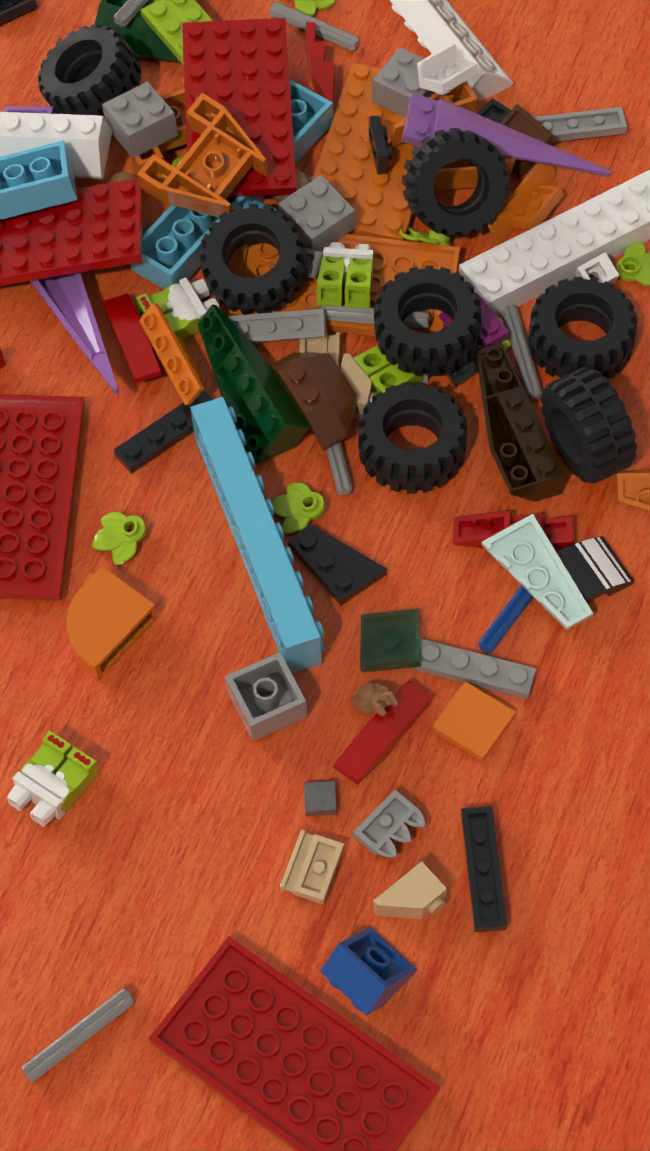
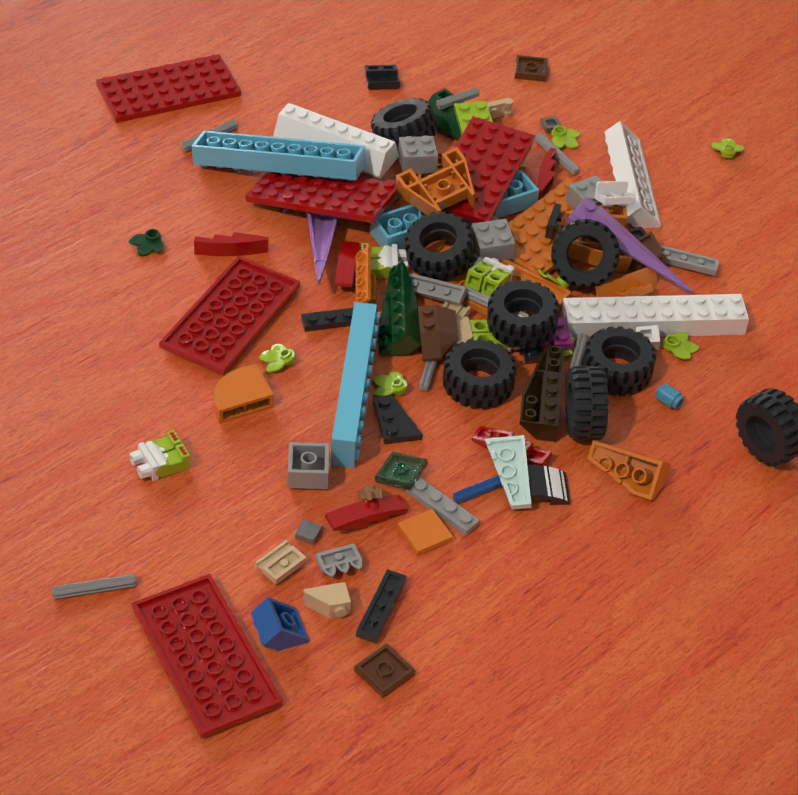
camera: 20 degrees right, 15 degrees down
(541, 966) = (384, 670): none -> reddish brown tile

